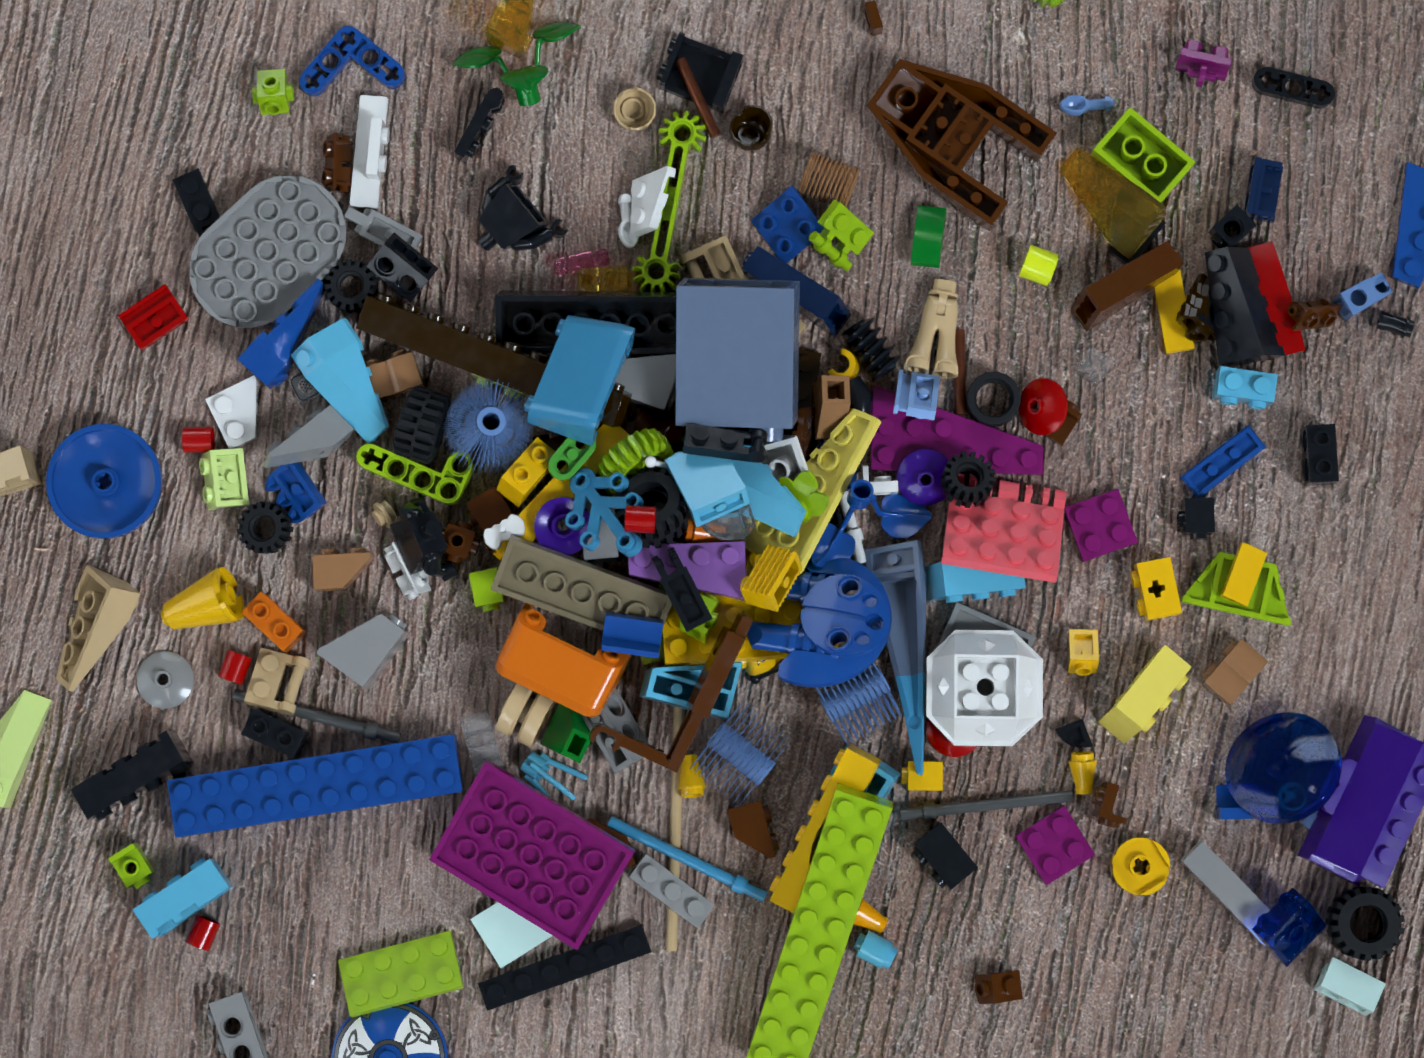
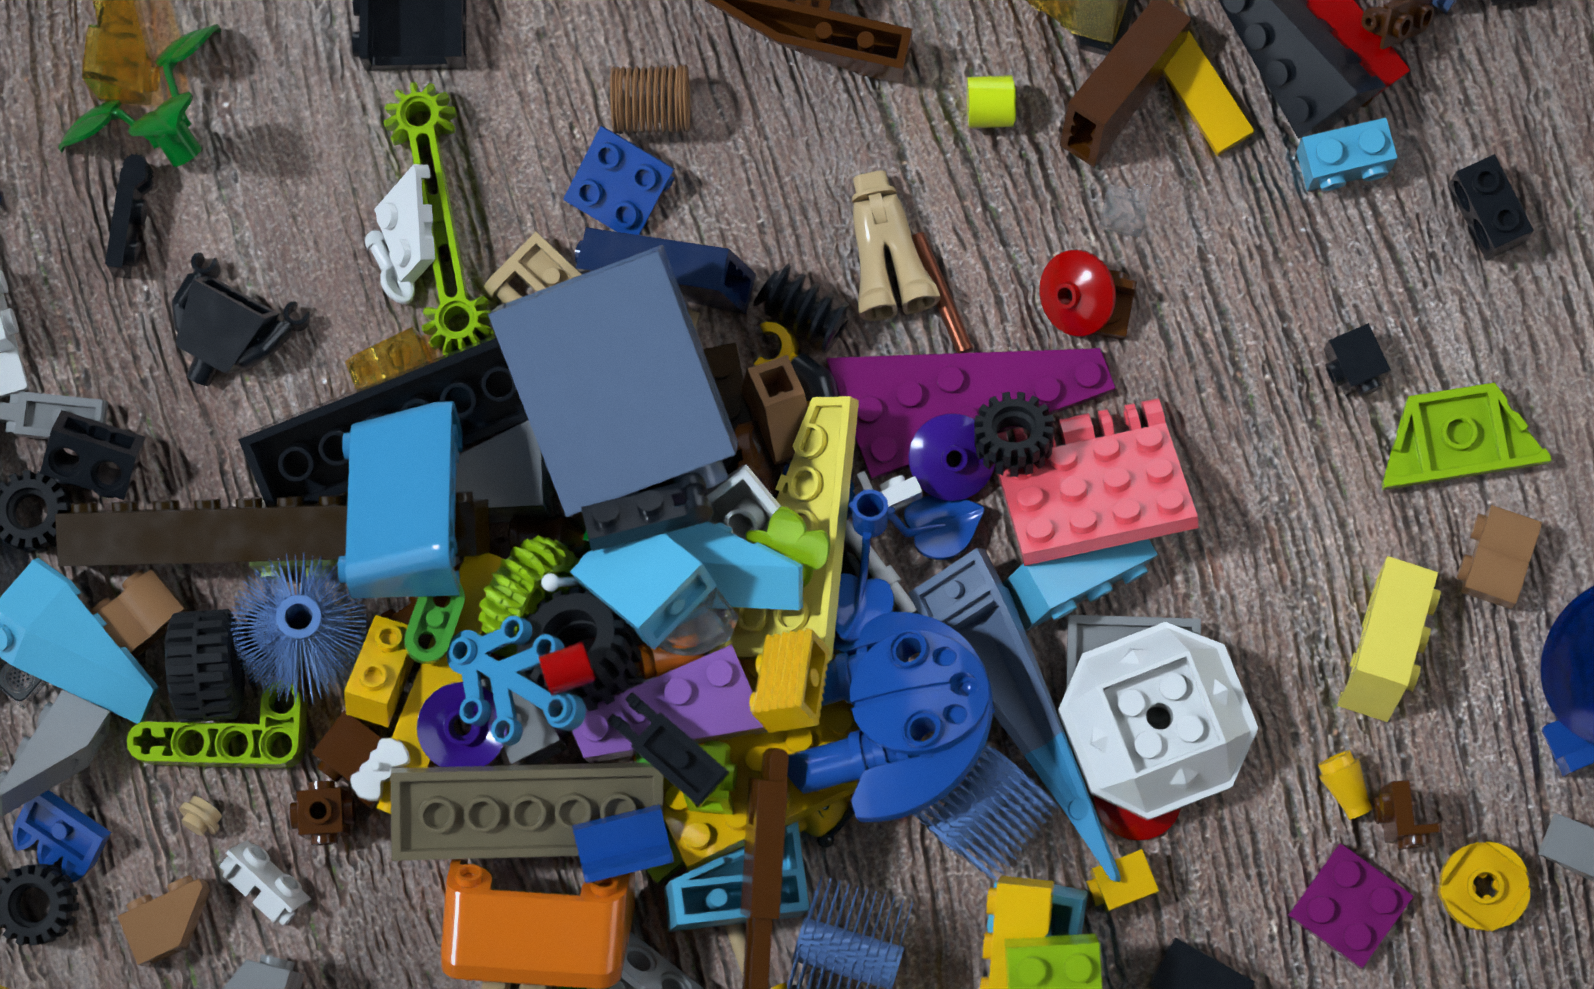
camera: 20 degrees left, 5 degrees down
(422, 540) = (268, 831): black torso -> none
(483, 596) = (389, 876): lime brick -> none
(581, 261) = (345, 347): clear pink axle -> none
(634, 109) = (338, 108): tan hair -> none
(697, 97) = (421, 59): copper bar -> none
(751, 128) = (513, 71): dark brown hair -> none
(846, 228) = (701, 156): lime plate -> none
(917, 395) = (893, 346): light blue plate -> none
(928, 236) = (821, 123): green slope -> none
(930, 811) = (1152, 928): dark grey bar -> none
(1005, 381) = (1003, 278): black tyre -> none
(1075, 734) = (1312, 736): black tile -> none
(1083, 651) = (1276, 613): yellow bracket -> none
(1100, 525) = (1226, 427): magenta plate -> none
(1162, 574) = (1341, 461): yellow brick -> none
(1197, 312) = (1238, 80): dark brown rock -> none
(1222, 462) = (1359, 272): blue tile -> none
(1243, 574) = (1455, 414): yellow slope -> none

